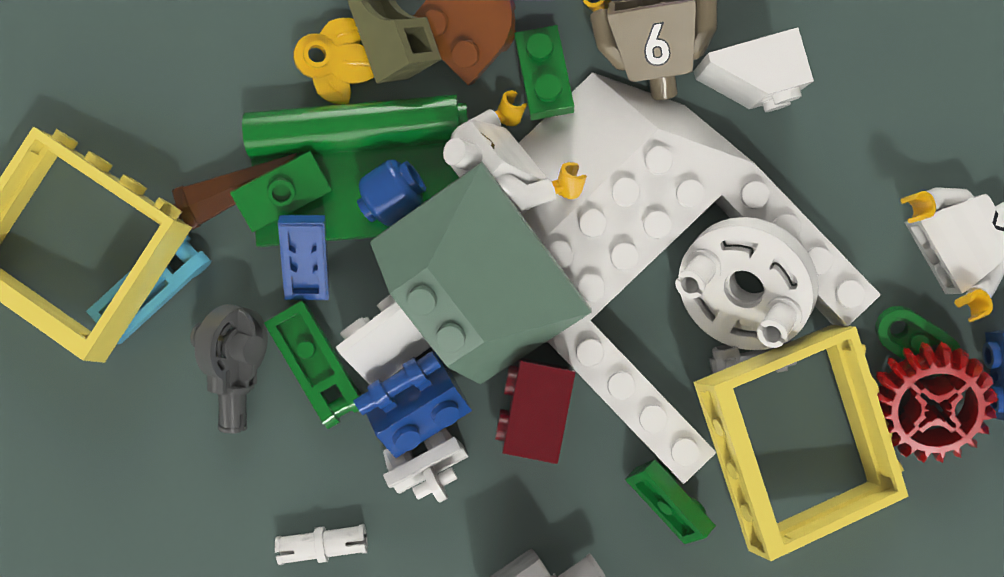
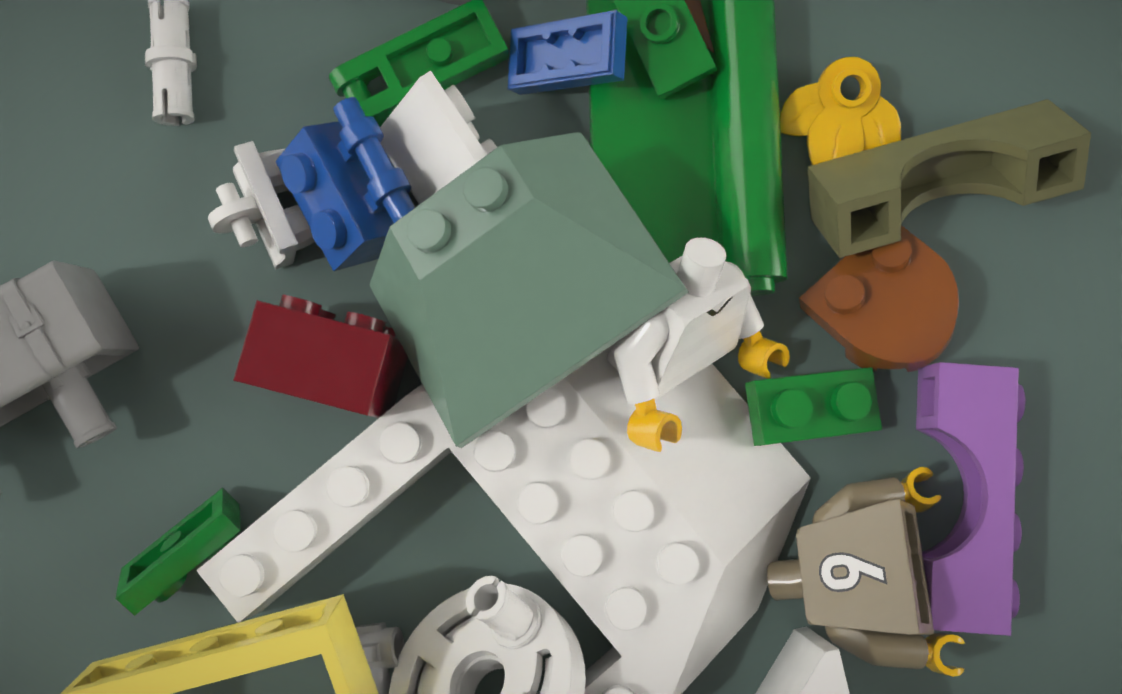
camera: 90 degrees right, 5 degrees down
(390, 192) = (653, 173): blue head -> none

